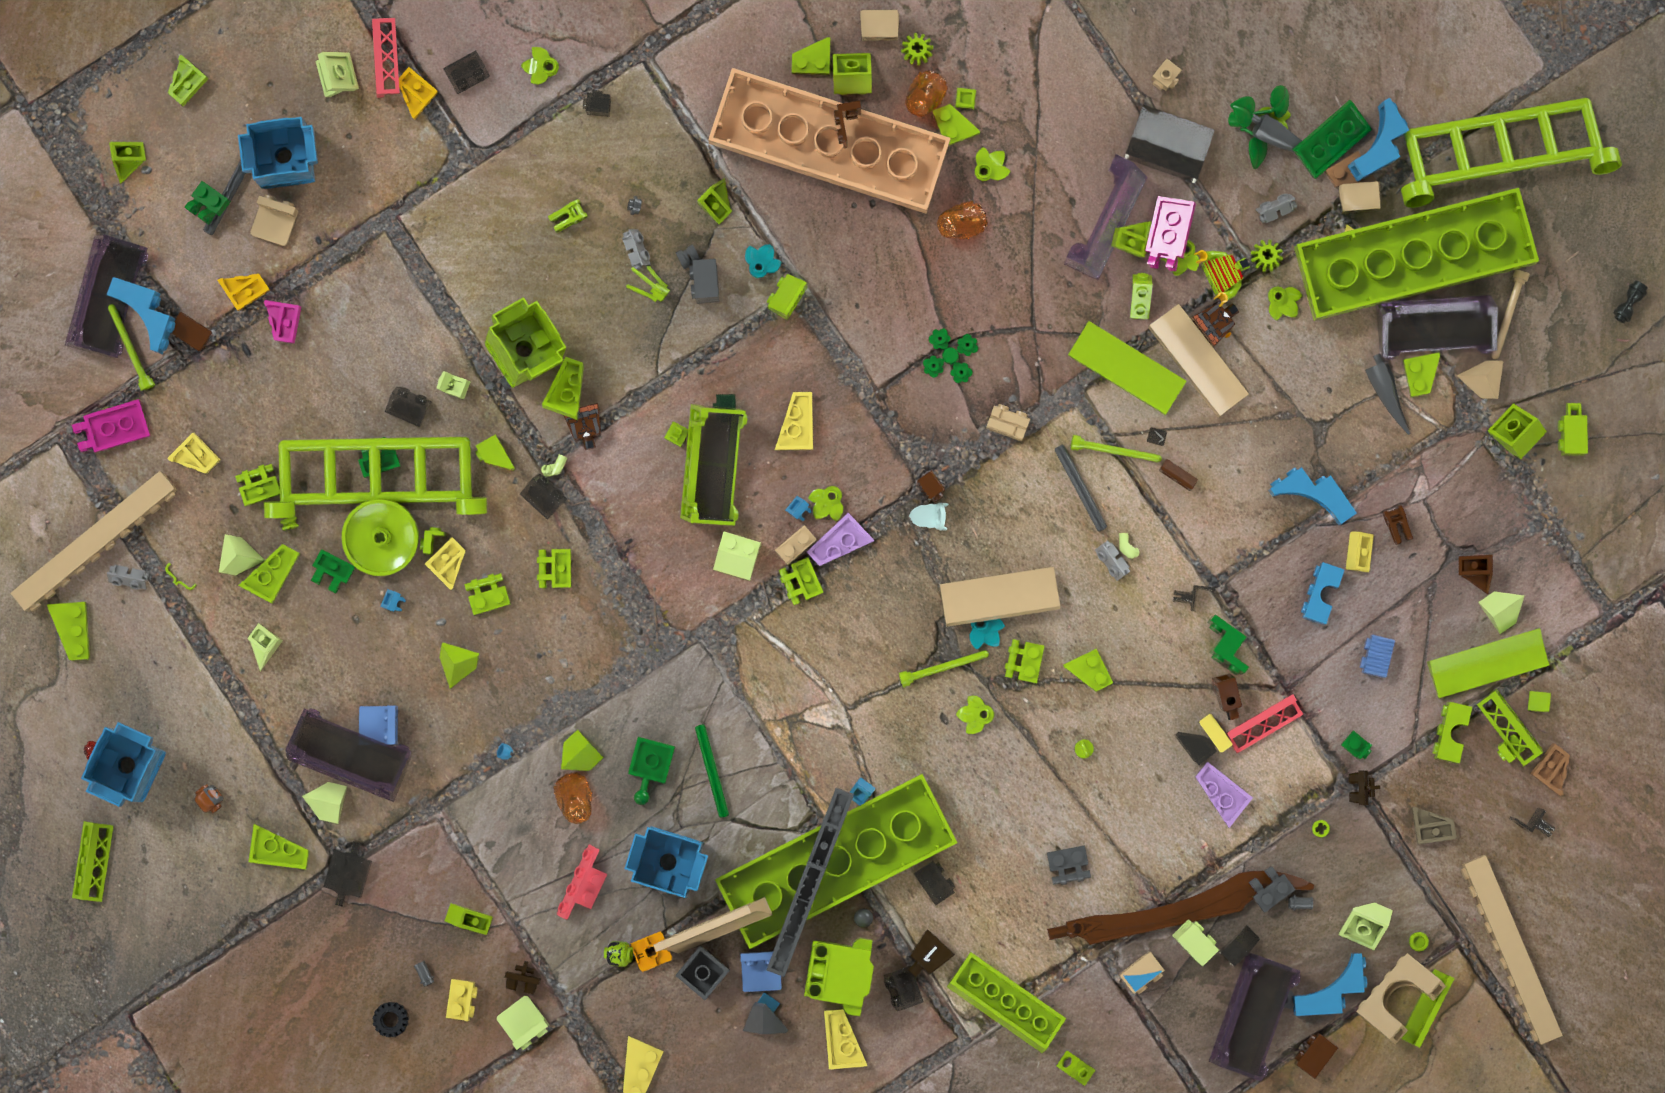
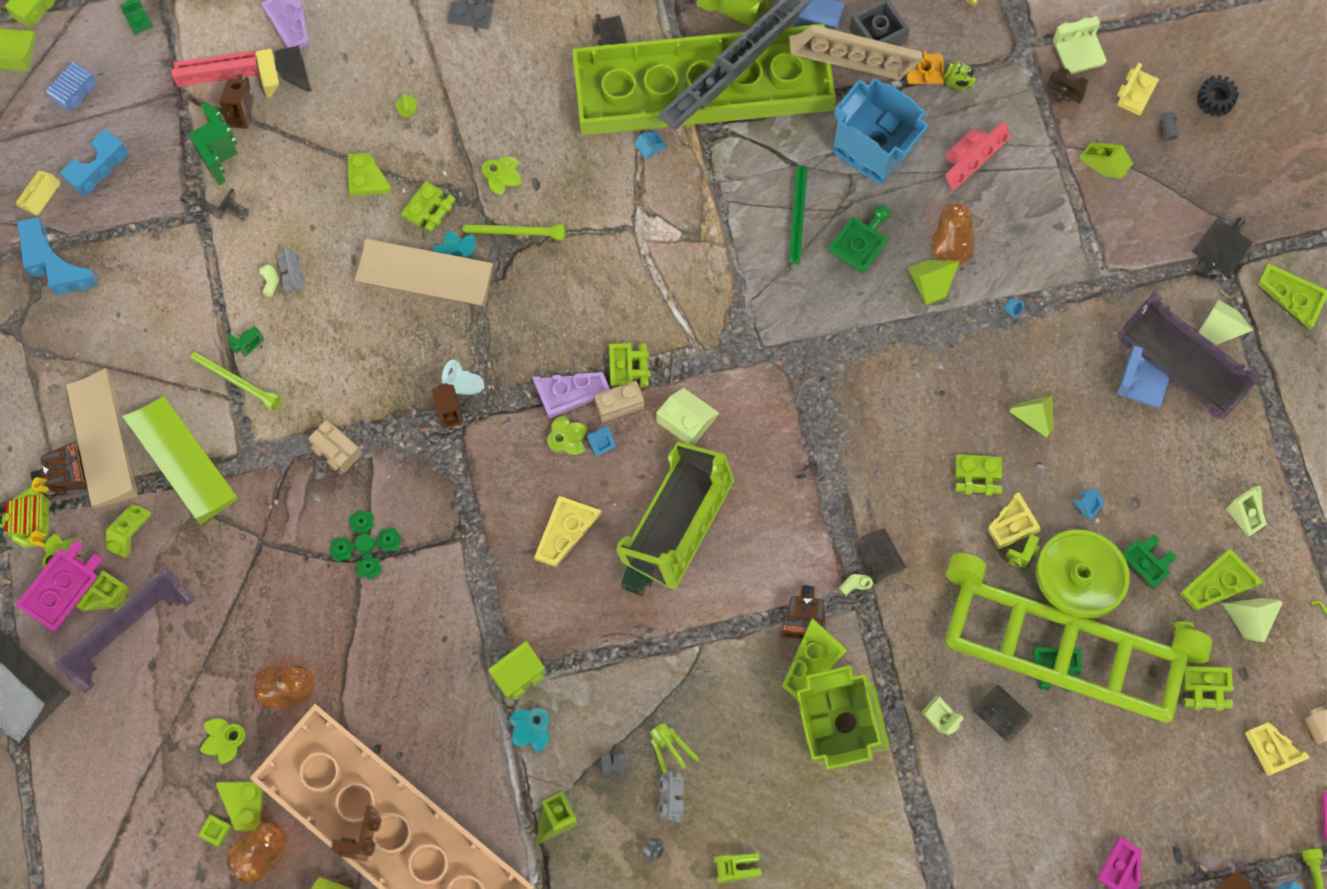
camera: 160 degrees left, 15 degrees down
(494, 453) = (920, 620): lime slope -> none
(560, 568) = (887, 470): lime plate -> none
(676, 434) = (703, 570): lime tile -> none
(705, 281) = (604, 723): dark grey brick -> none
(863, 918) = (696, 28): dark grey piece -> none
(1080, 488) = (290, 357): dark grey axle -> none
(1118, 486) = (247, 342): none -> green bracket
(1156, 436) = (185, 379): clear smoke sticker -> none
(1178, 475) = (181, 330): reddish brown slope -> none

